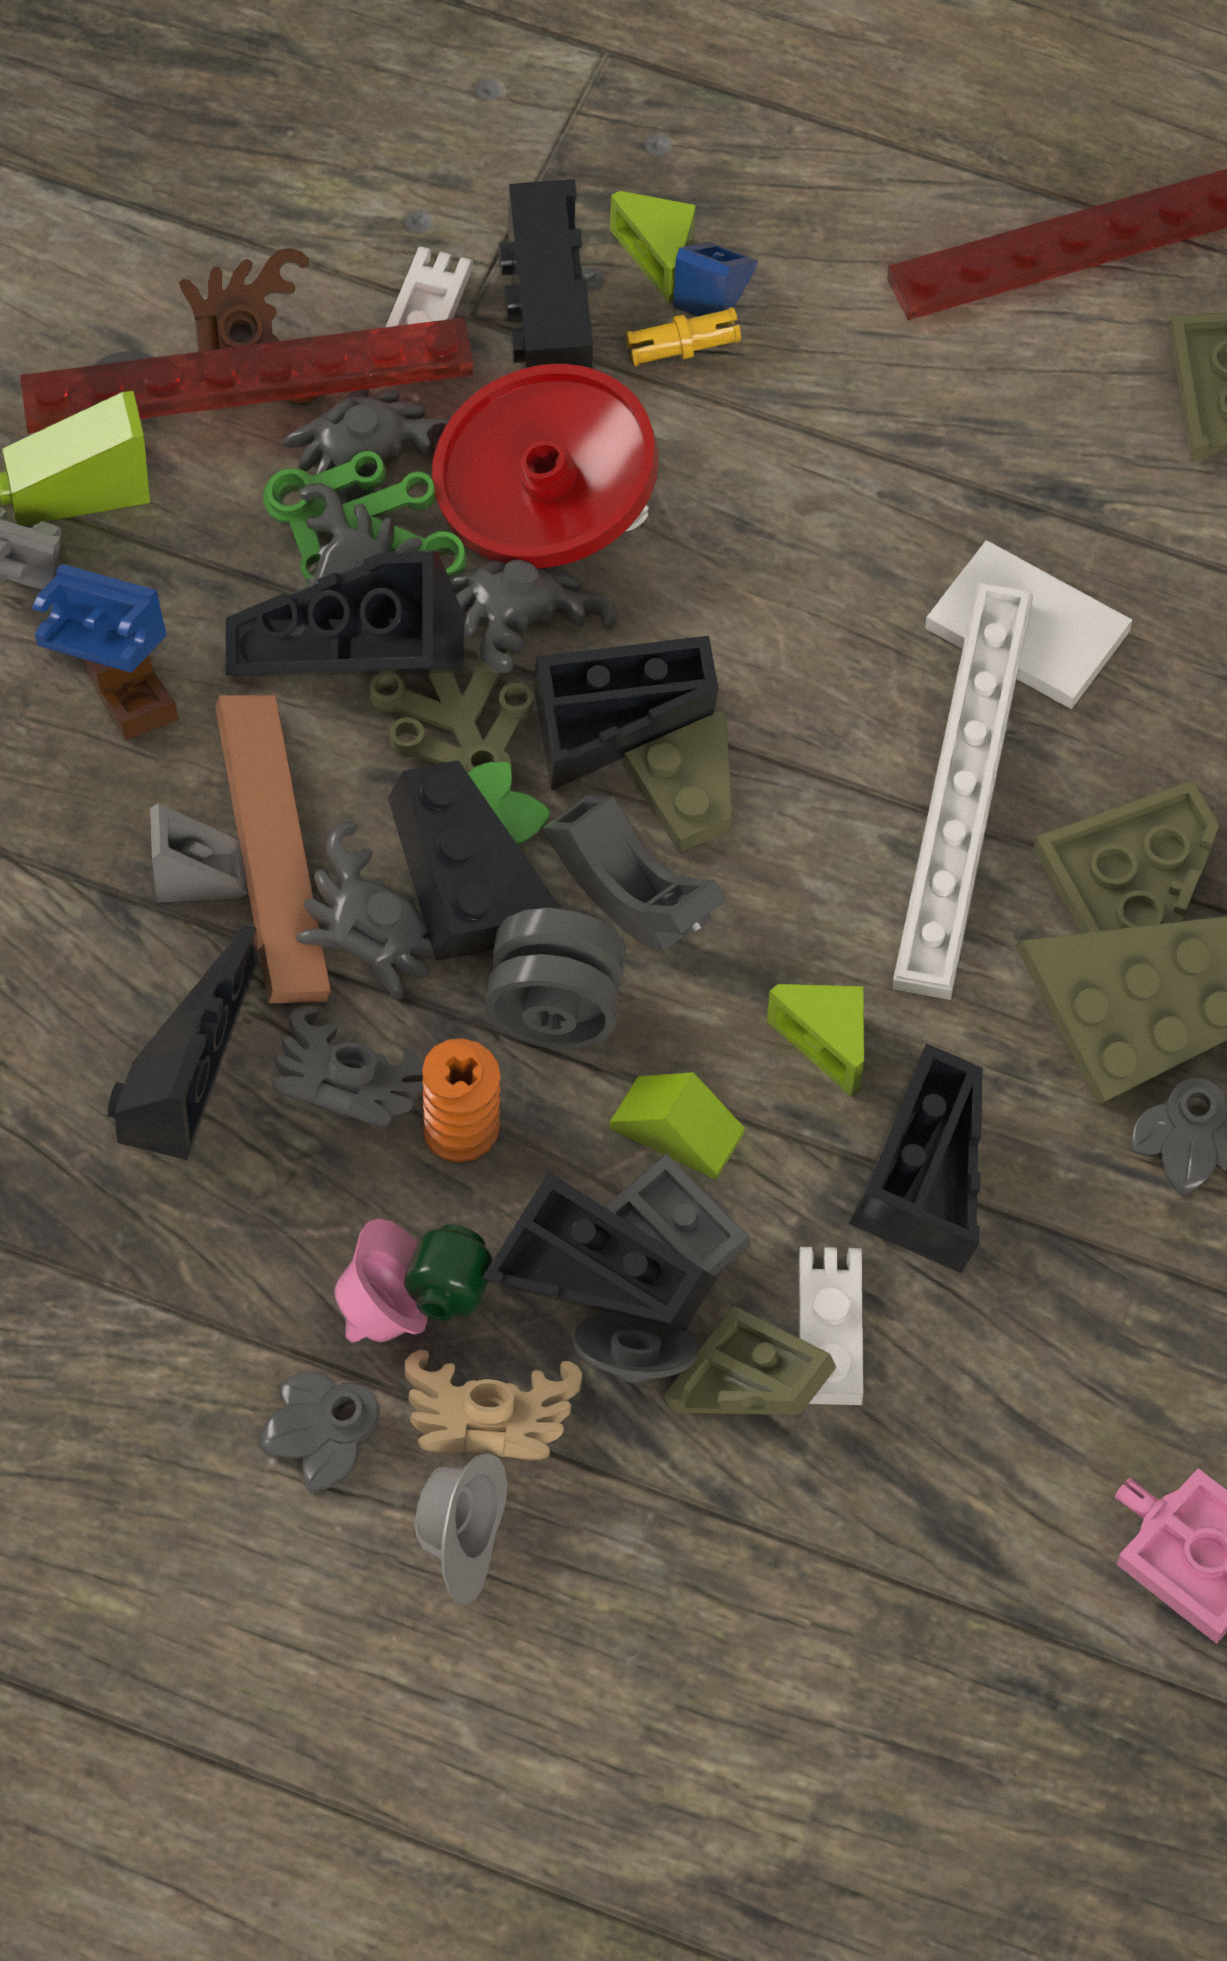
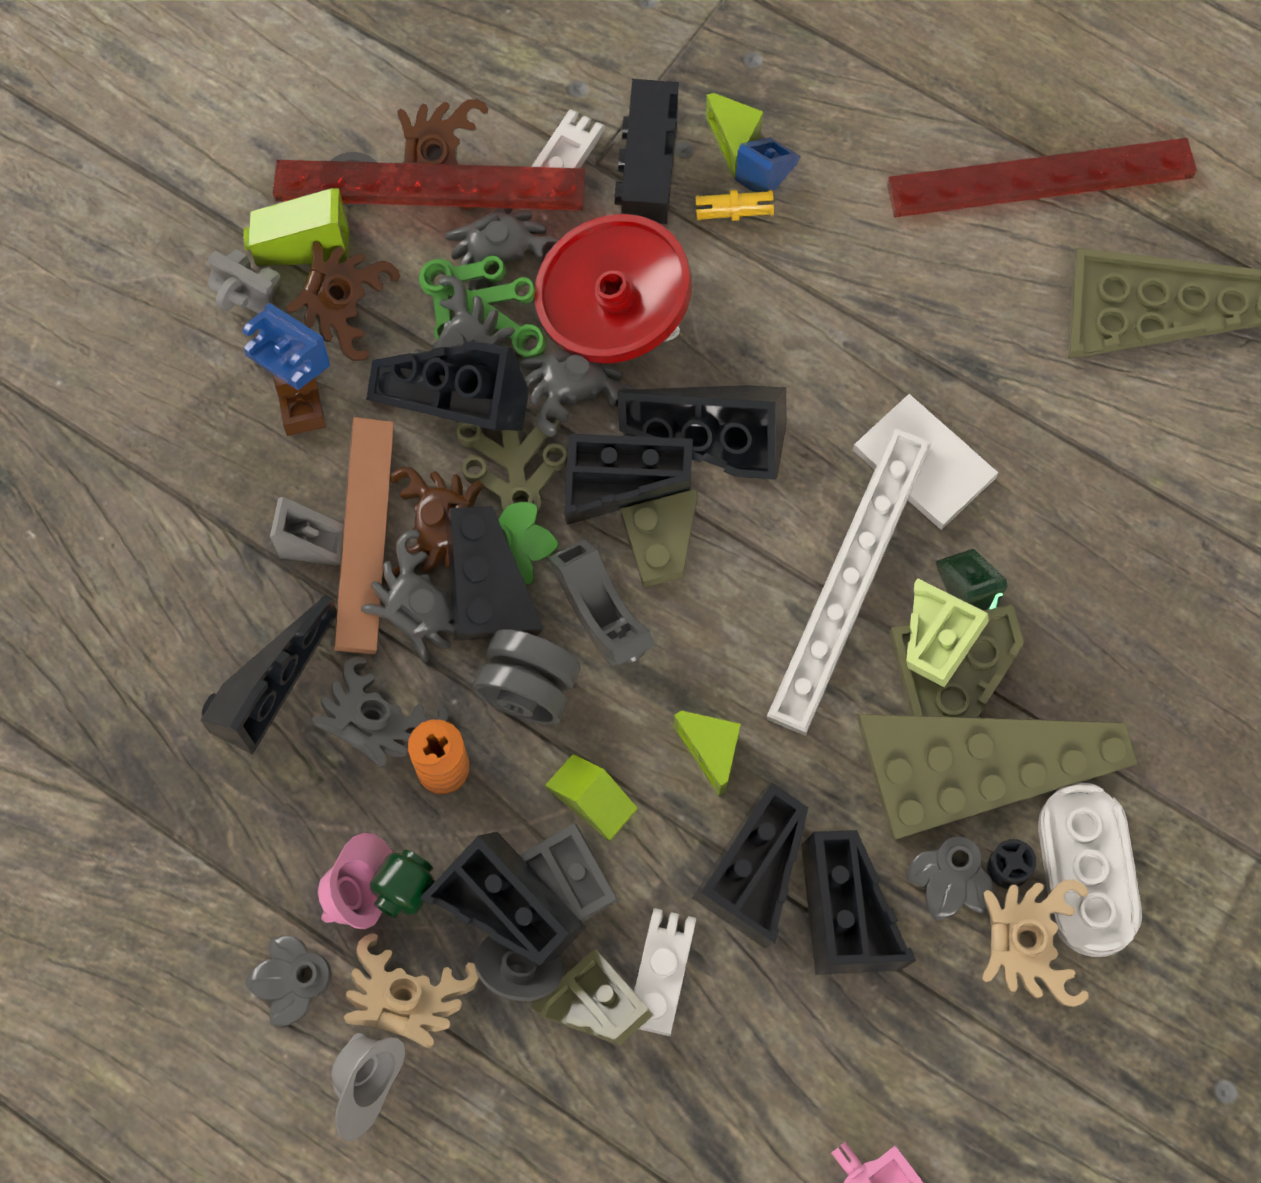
camera: 15 degrees right, 10 degrees up
(147, 539) = (333, 293): none -> reddish brown animal
(361, 800) = (432, 510): none -> reddish brown animal
(760, 620) = (729, 425): none -> black wedge
(1064, 1193) = (847, 908): none -> black wedge
(1105, 825) = (941, 632): none -> yellowish green wing
(1130, 762) = (972, 579): none -> clear green slope

